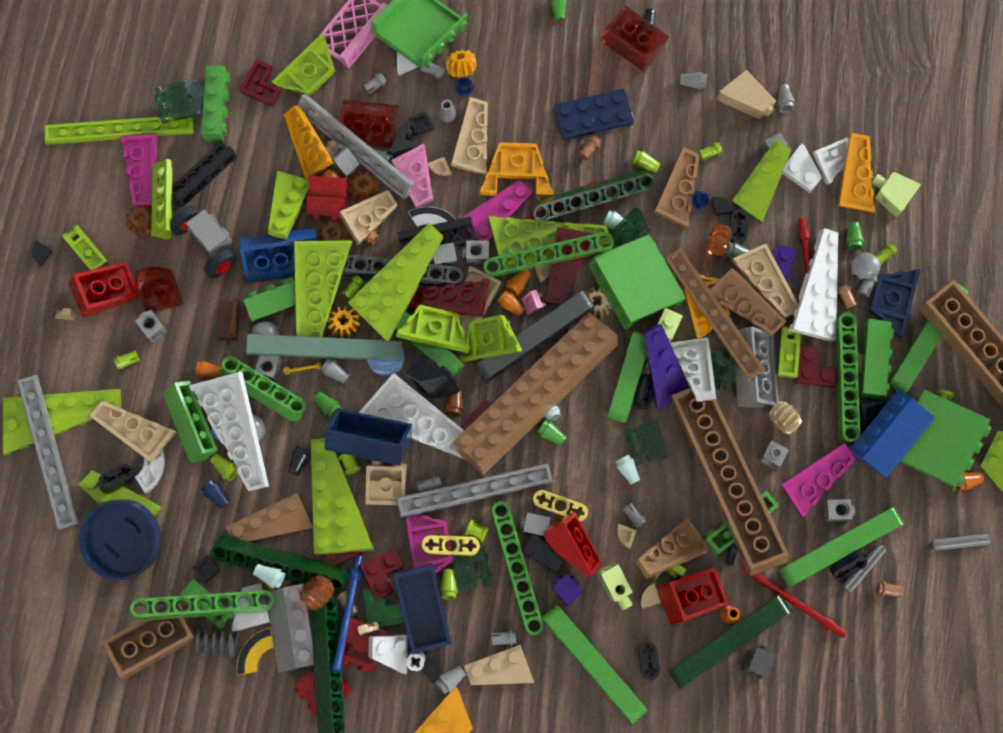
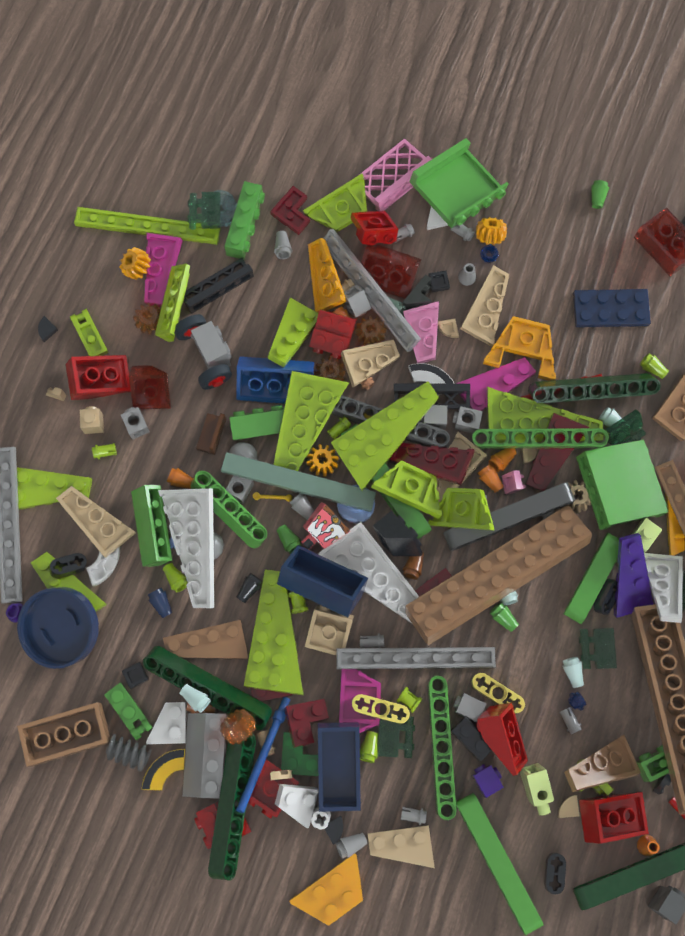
camera: 15 degrees right, 0 degrees up
(72, 535) = (13, 611): none -> dark purple plate
(107, 333) = (91, 420): none -> tan brick
(115, 169) = (135, 263): none -> light orange gear
(192, 601) = (112, 716): bright green beam -> none
(258, 121) = (282, 245): none -> light grey cone
(345, 84) = (374, 227): none -> red plate
(358, 386) = (323, 528): none -> torso
(590, 146) = (604, 337): nougat pin -> none
(625, 535) = (557, 738): tan tile -> none
(636, 496) = (577, 701): none -> clear blue plate

